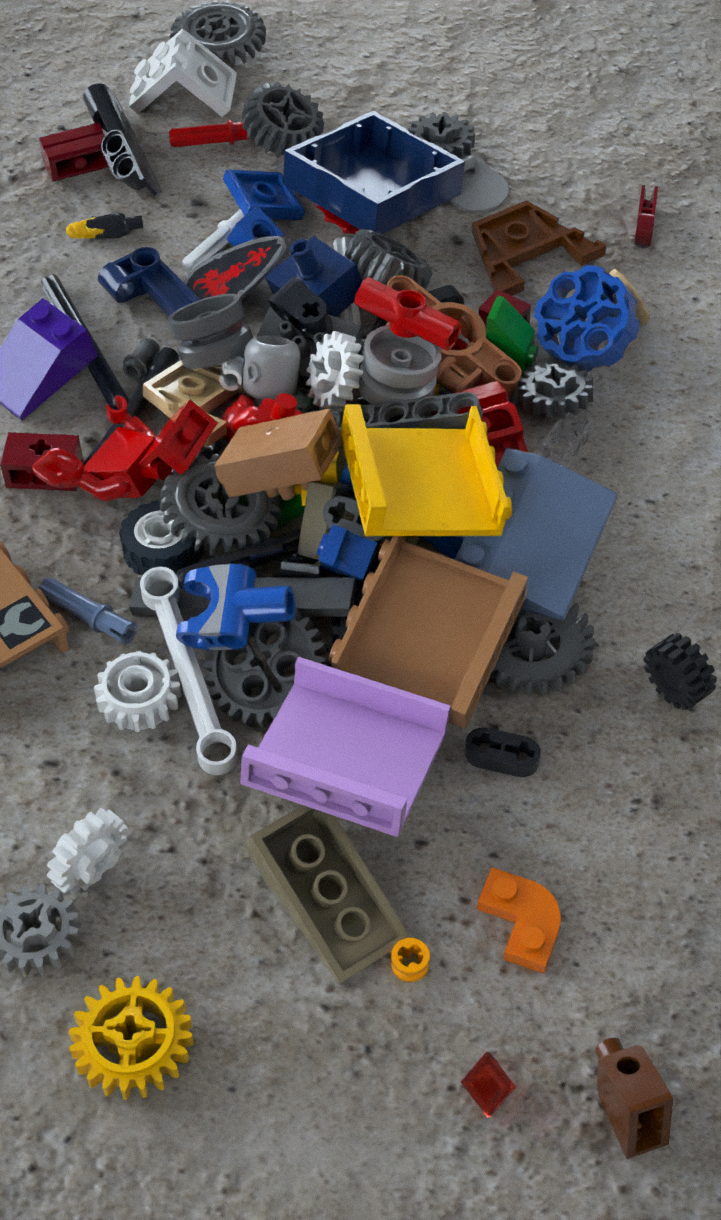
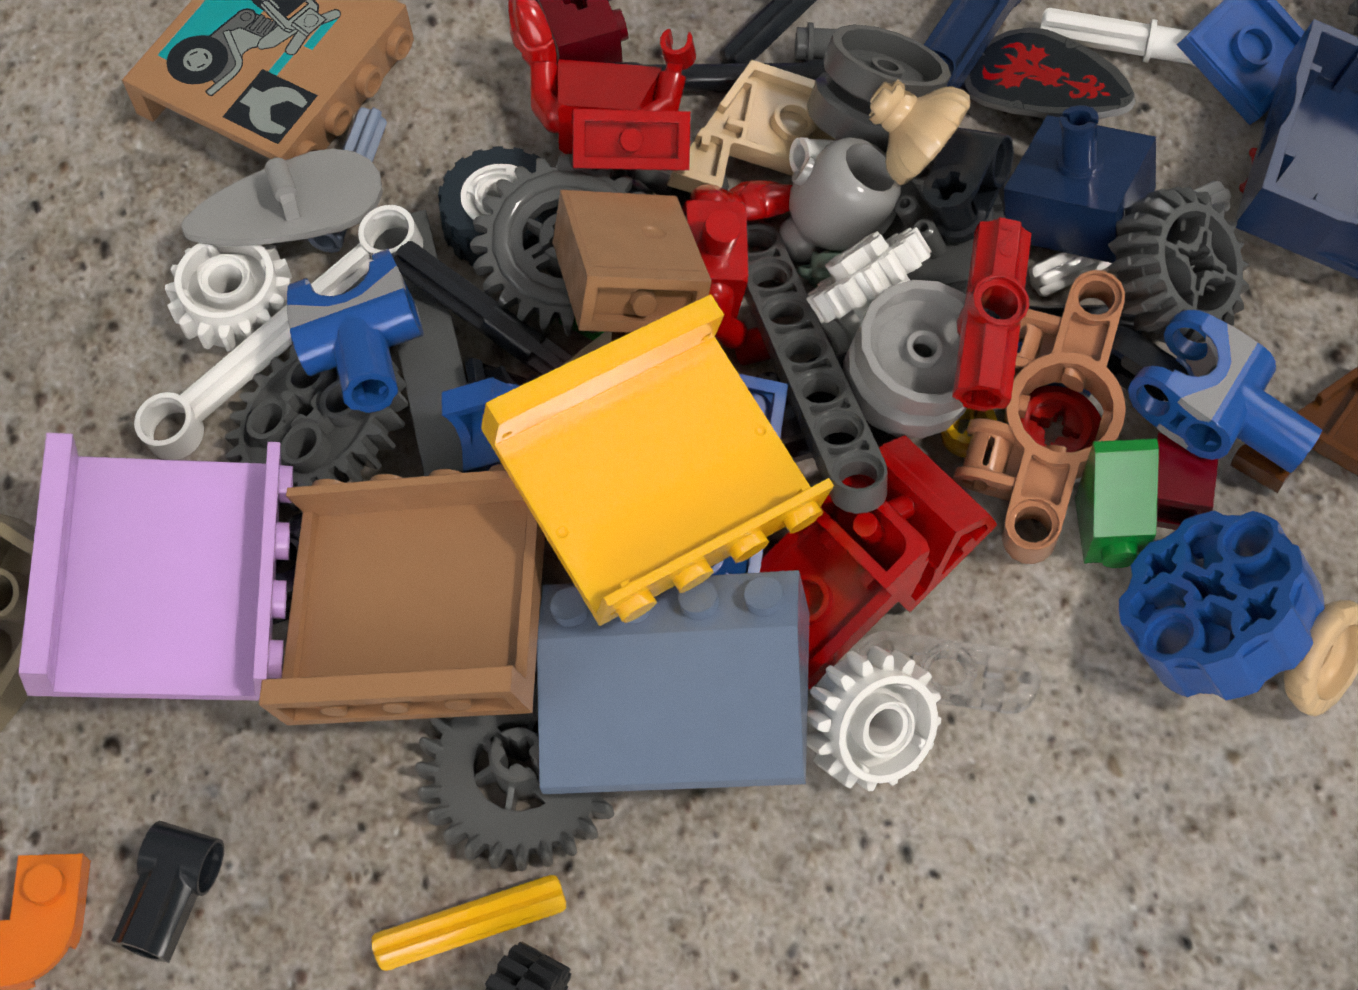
camera: 70 degrees right, 10 degrees up
(98, 632) = (289, 201): none -> light grey shield
(253, 225) = (1160, 55): blue brick -> none
(266, 309) = (916, 125): none -> tan hair
(478, 275) = (1221, 395): none -> blue connector
(502, 752) = (283, 798): black beam -> none
(525, 820) = (172, 872): none -> black piece
(555, 390) = (1053, 618): dark grey gear -> none
(584, 459) = (872, 718): none -> white gear
(612, 693) = (468, 922): none -> yellow axle

